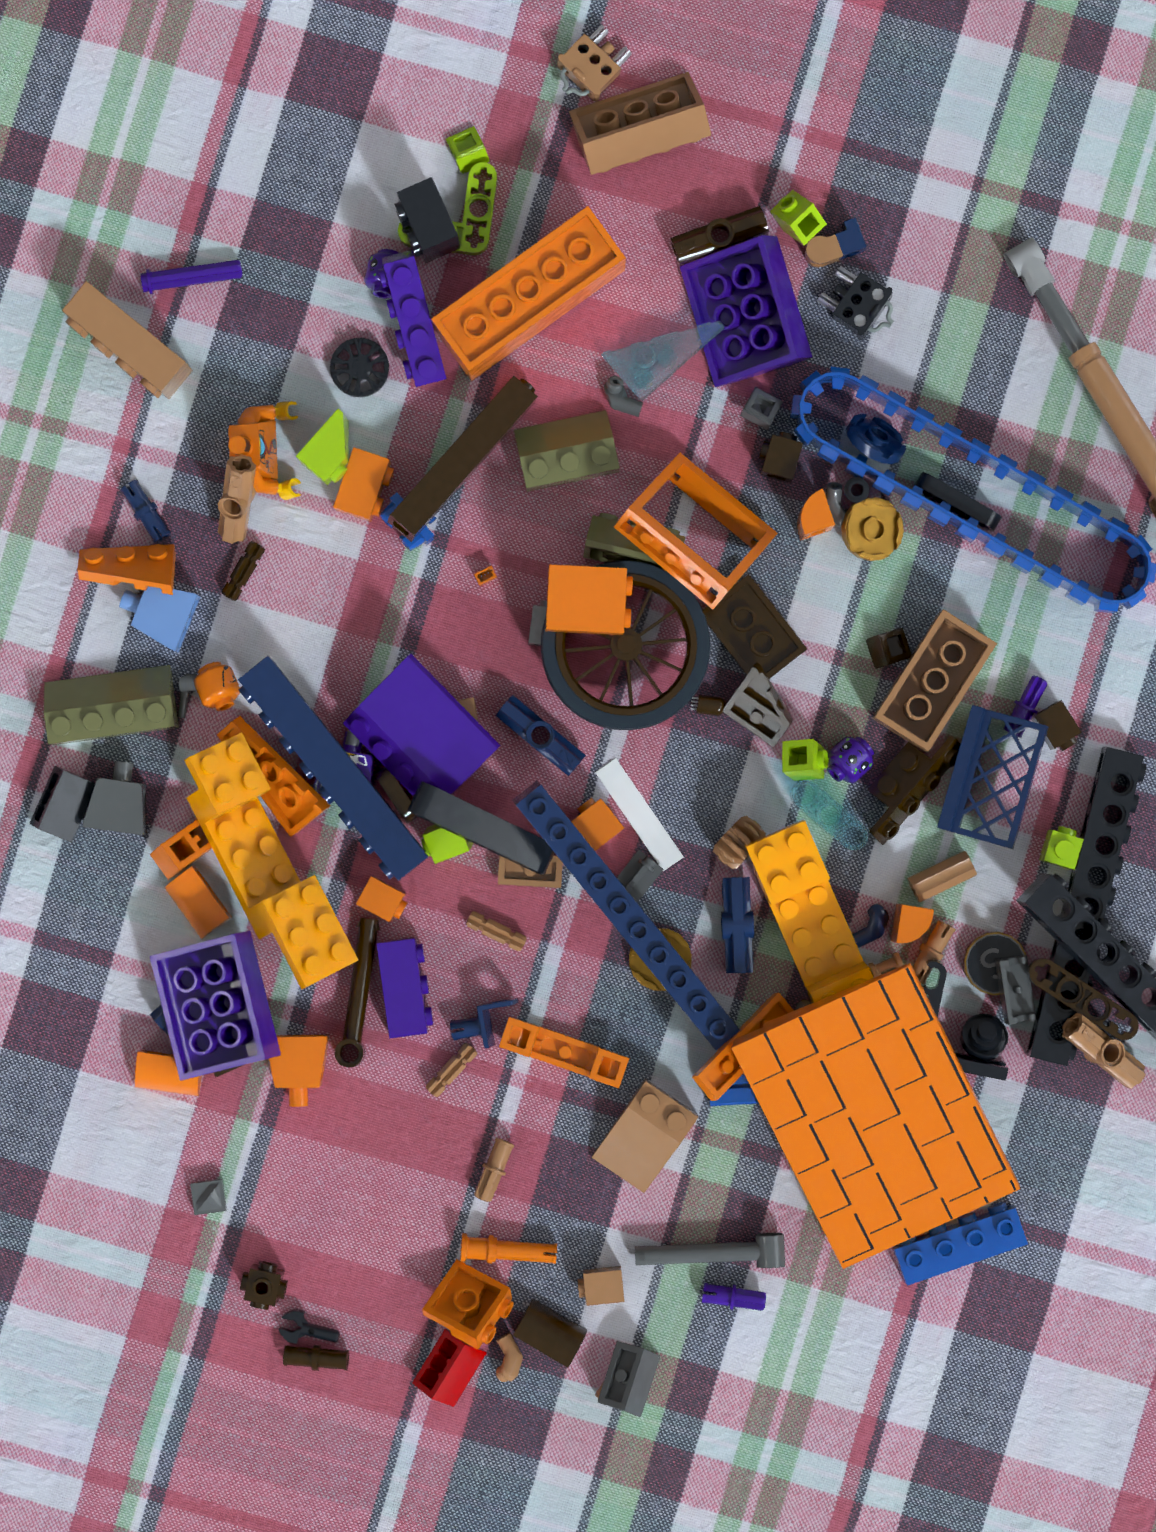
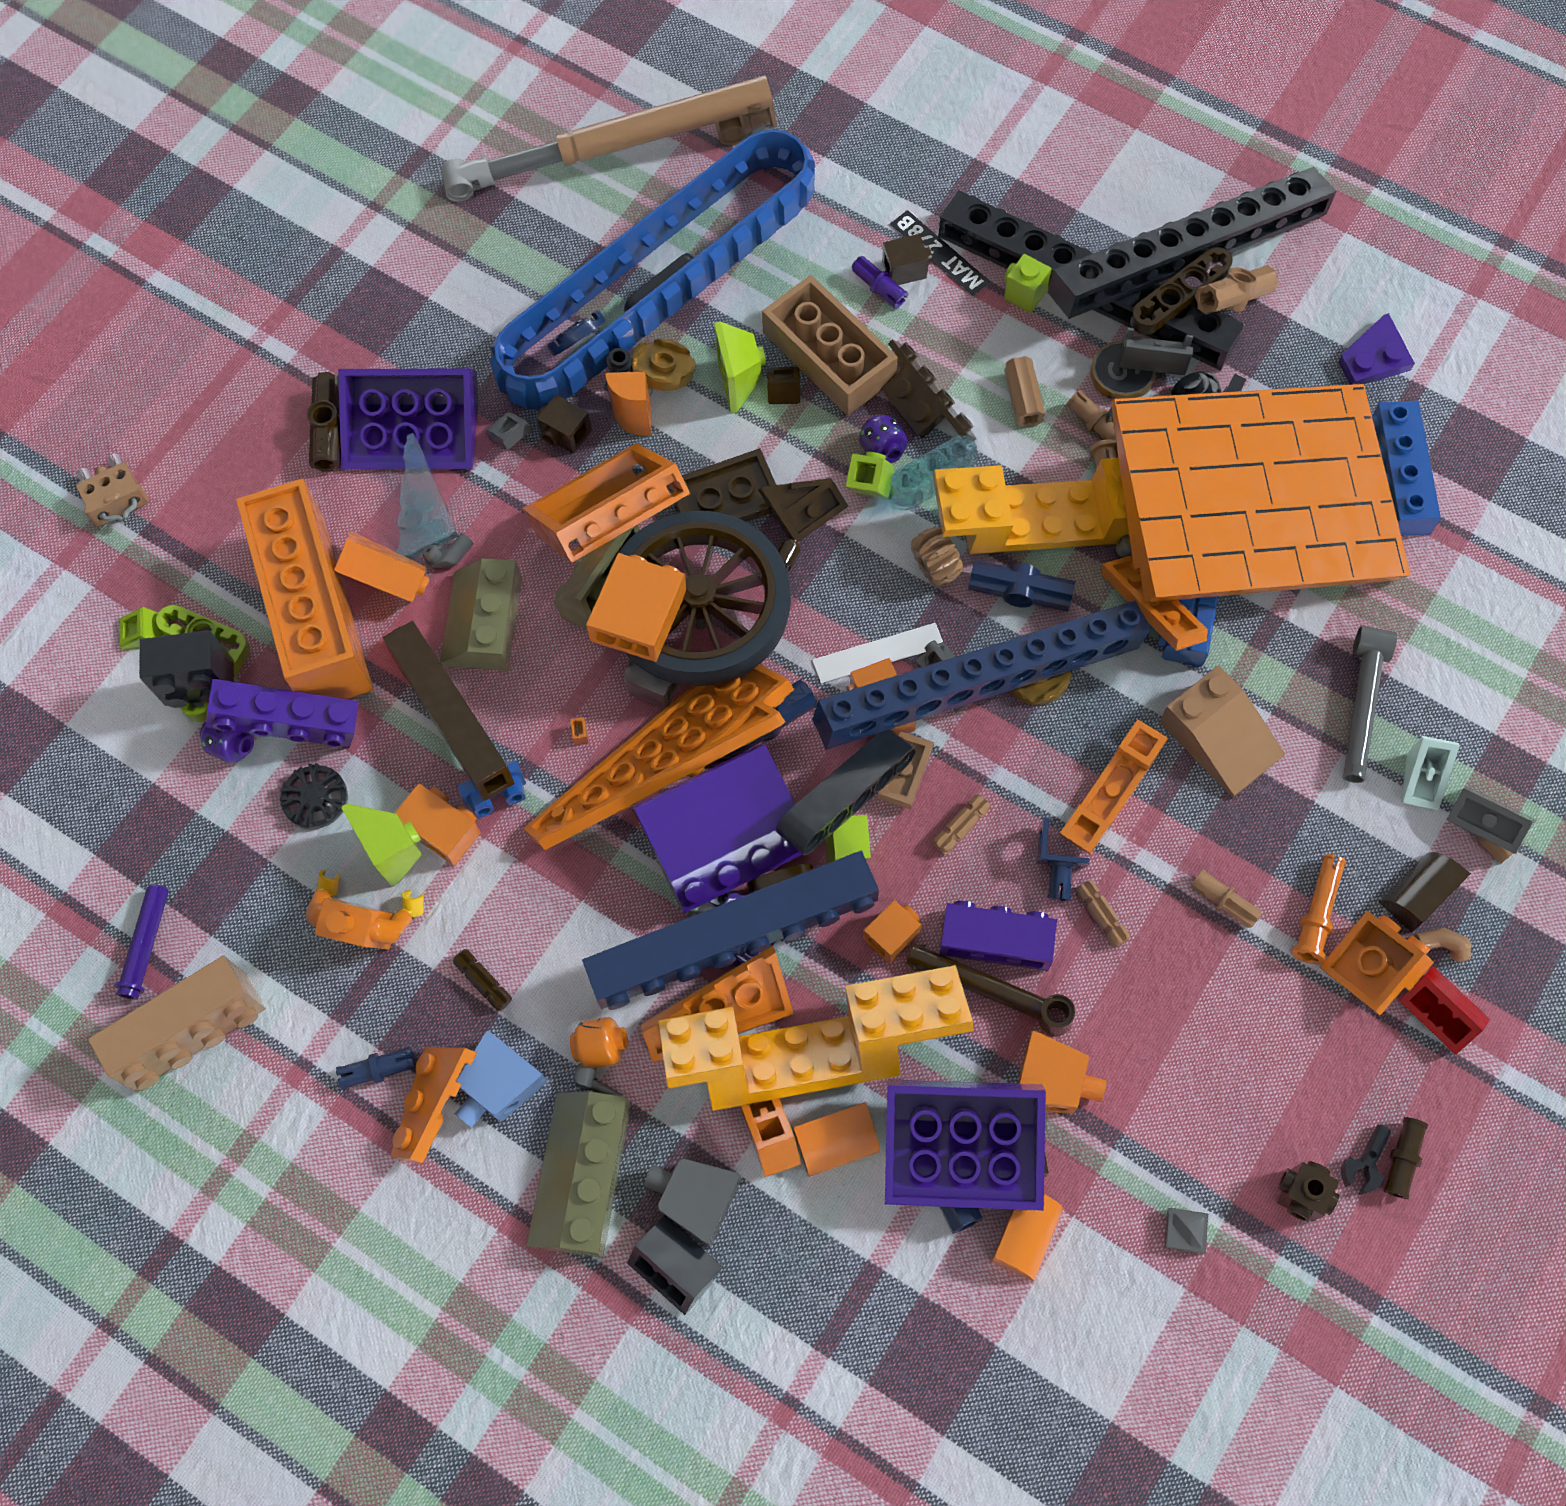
camera: 75 degrees left, 20 degrees down
(236, 498) = (384, 938): medium nougat piece -> none
(483, 663) = (674, 744): none -> orange wing
(582, 344) = (381, 568): none -> orange slope
(601, 1286) = (1381, 818): medium nougat brick -> none
(640, 123) = (187, 462): medium nougat slope -> none
(655, 1318) = (1428, 771): none -> light aqua slope
(734, 1297) = (1418, 693): dark purple axle -> none
(798, 217) = (337, 345): lime brick -> none
(828, 250) = (381, 328): leg -> none
(867, 312) = (443, 321): black piece -> none
(875, 928) = (1057, 462): dark blue arm -> none
(889, 602) = (738, 363): none -> lime slope
(910, 923) = (1064, 421): orange brick -> none
(966, 768) = (926, 344): dark blue fence -> none
(1083, 754) = (942, 254): none -> black sticker
(1083, 1196) = (1376, 354): none -> dark purple wing

